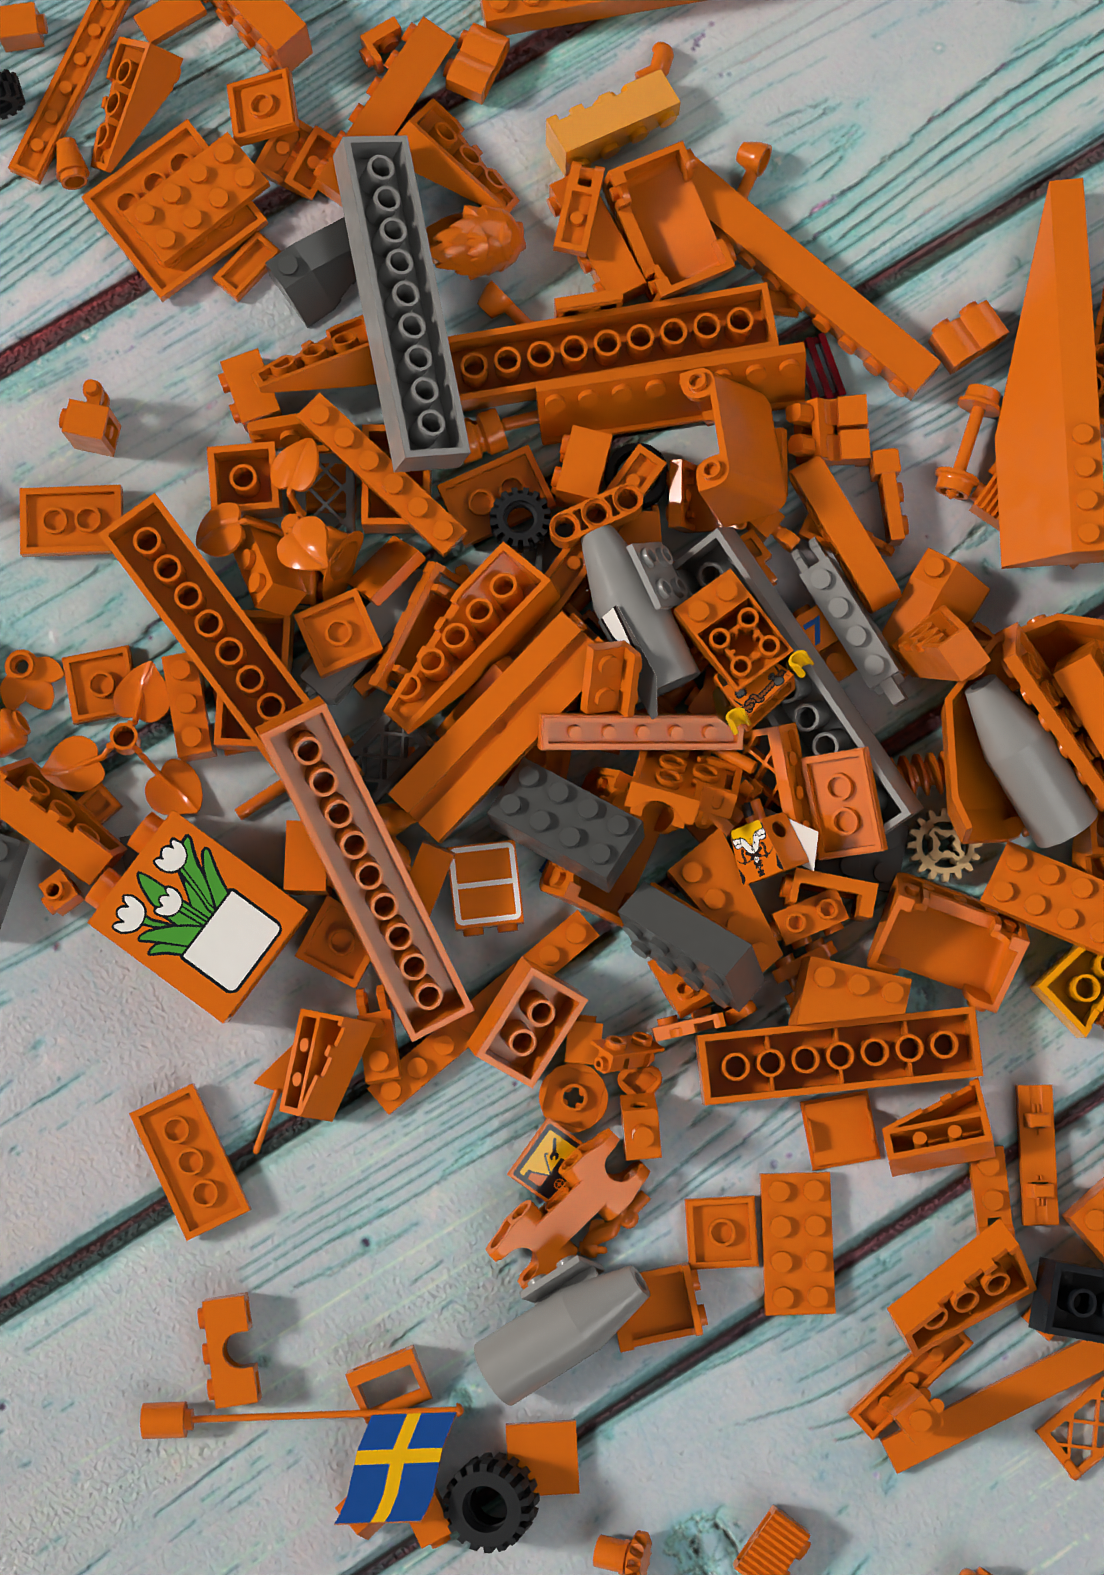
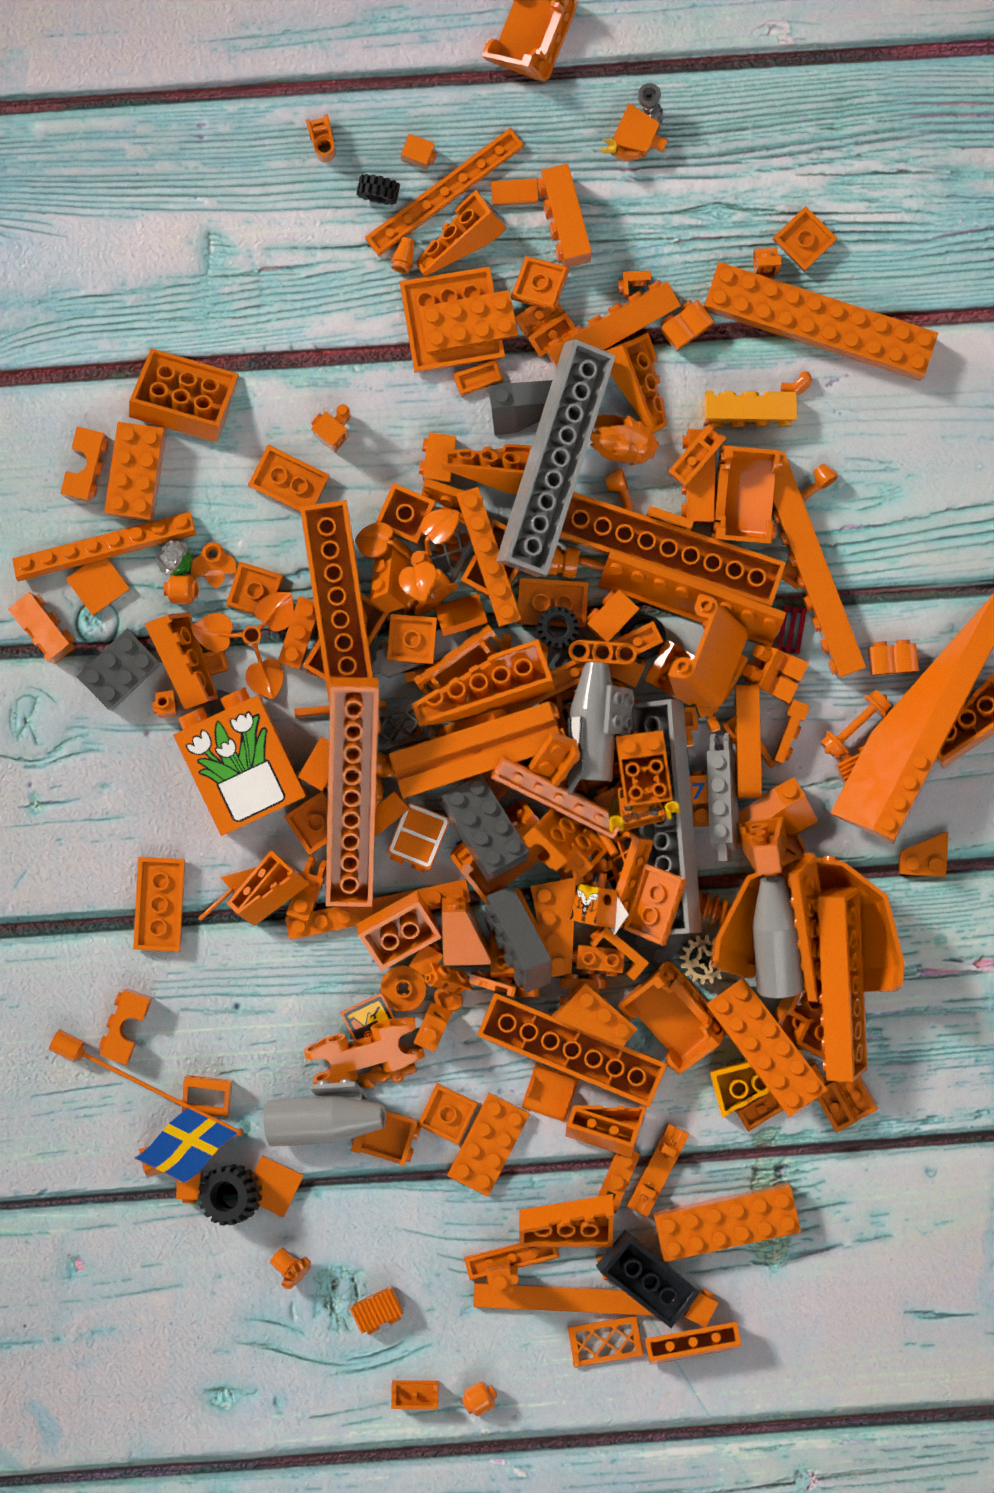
camera: 30 degrees right, 5 degrees up
(612, 983) = (462, 934): none -> orange slope

